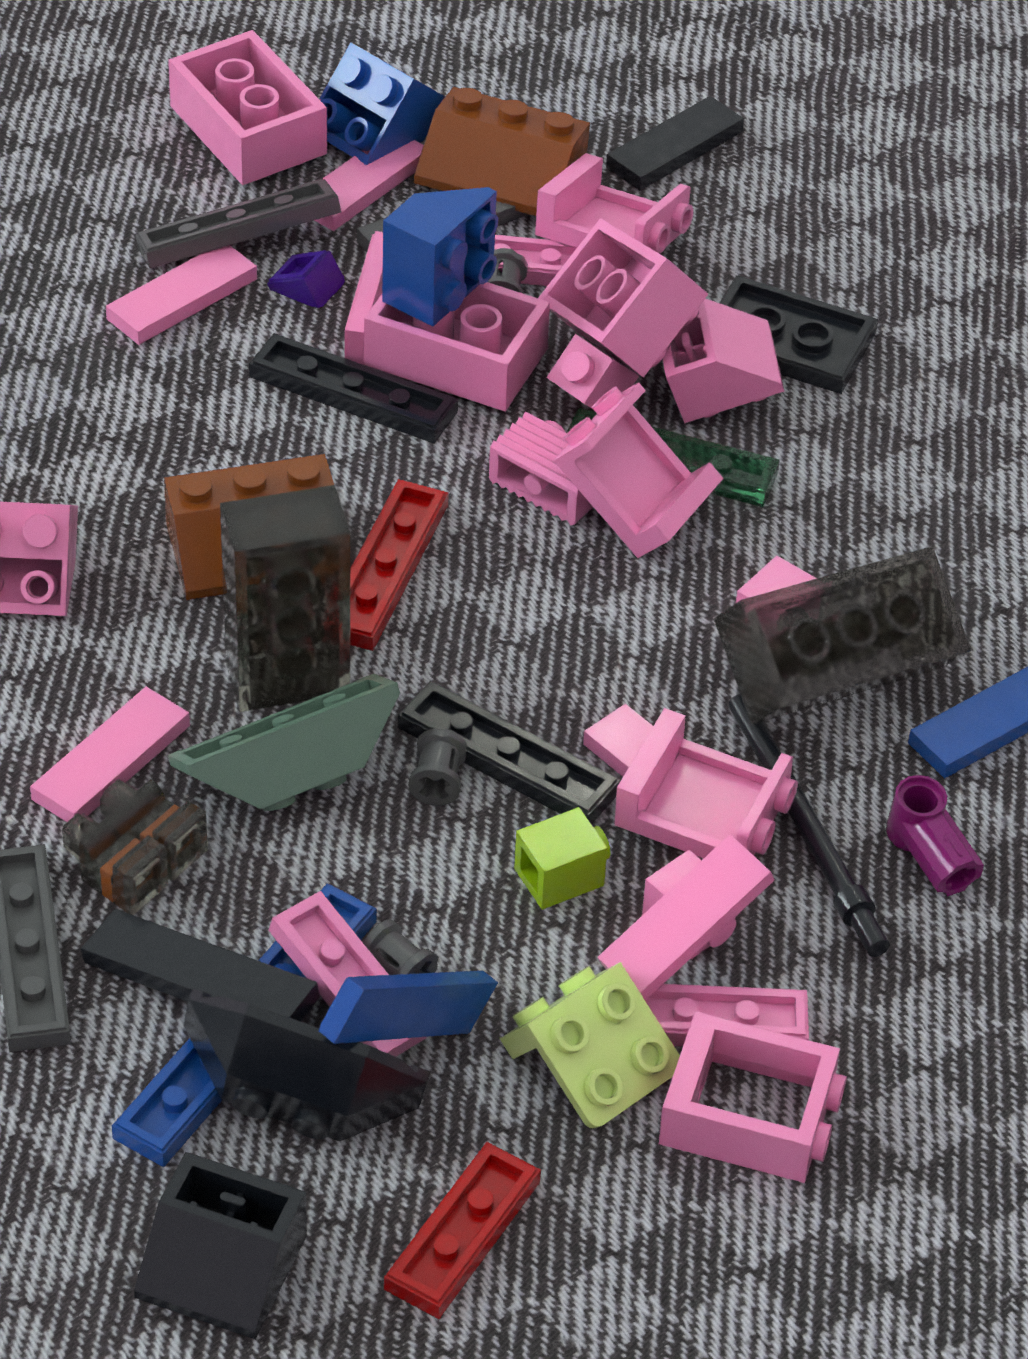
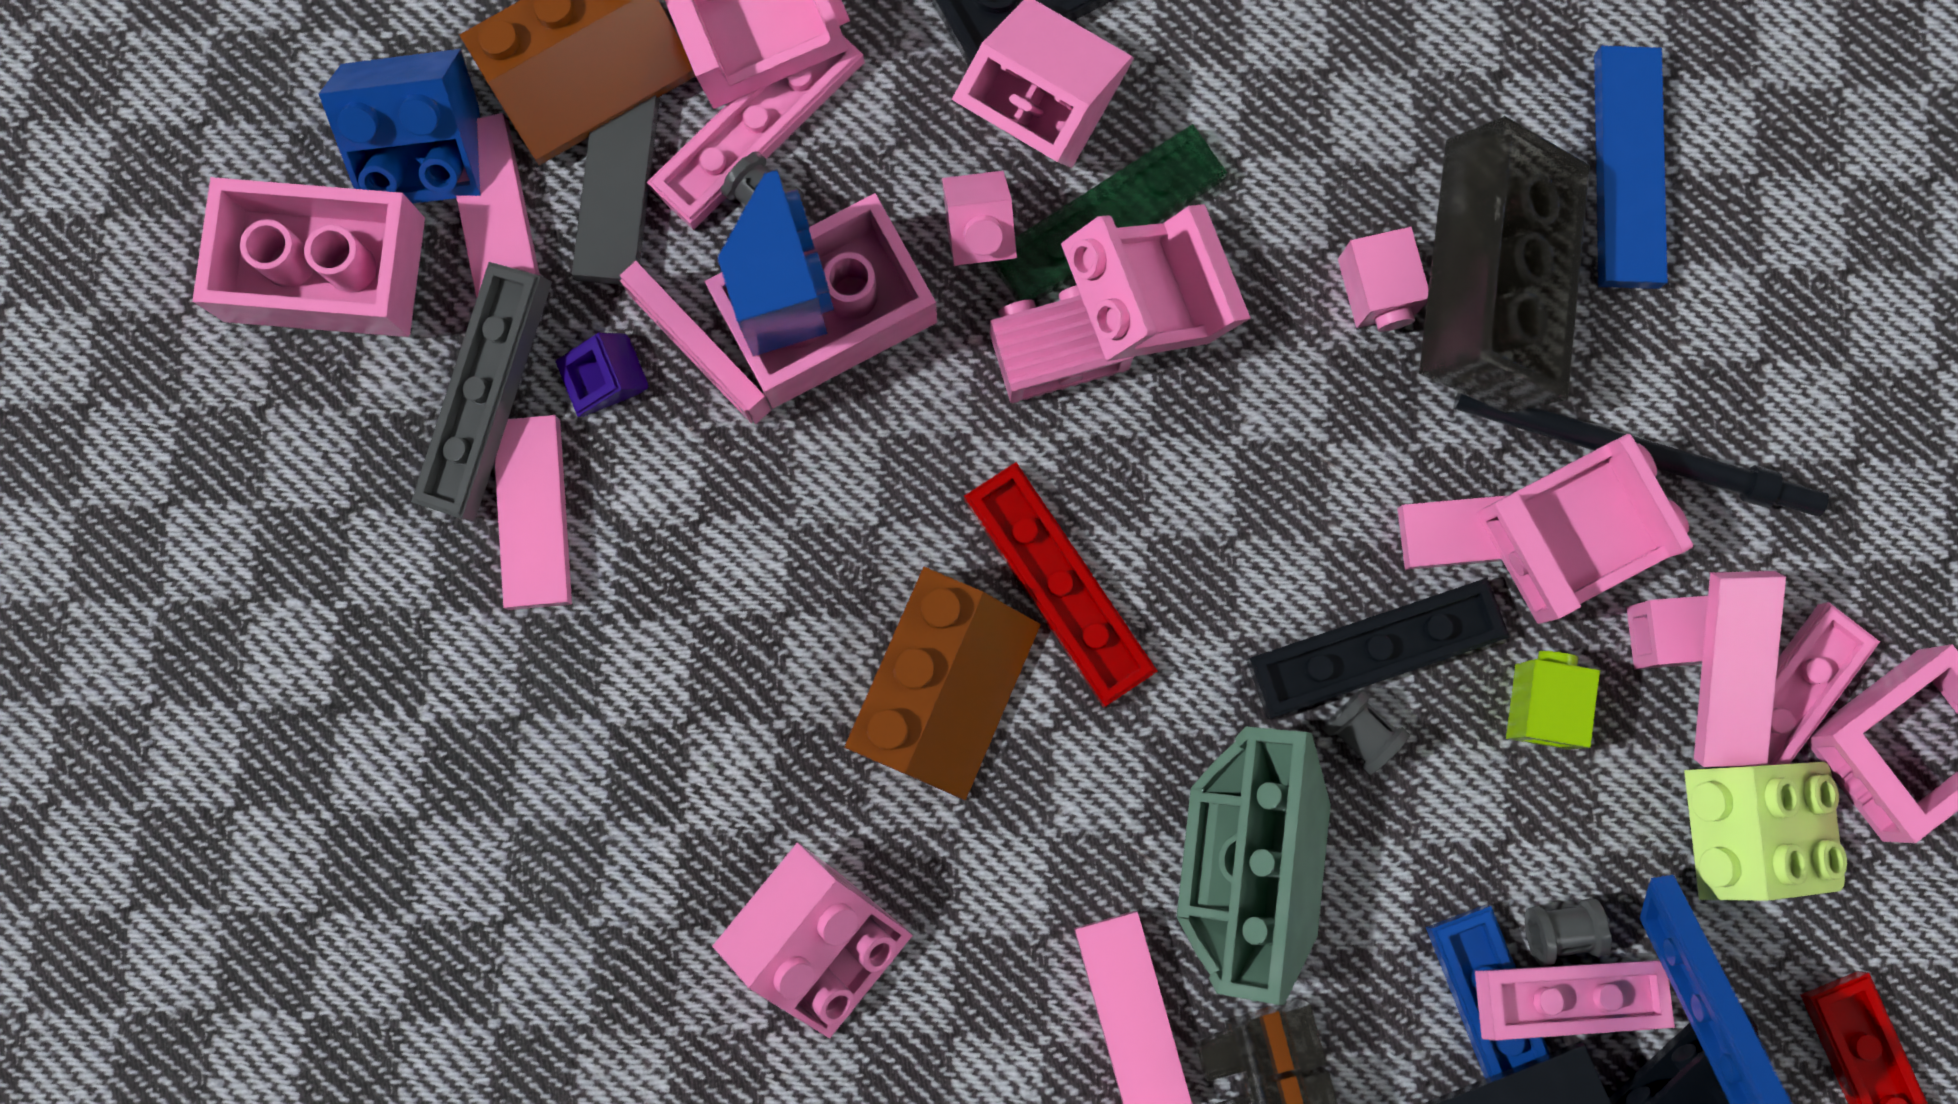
camera: 55 degrees left, 35 degrees up
(286, 596) = (1151, 770): clear smoke brick -> none
(353, 388) = (795, 442): black tile -> none
(623, 297) = (930, 122): bright pink brick -> none
(925, 828) = (1743, 364): magenta piece -> none

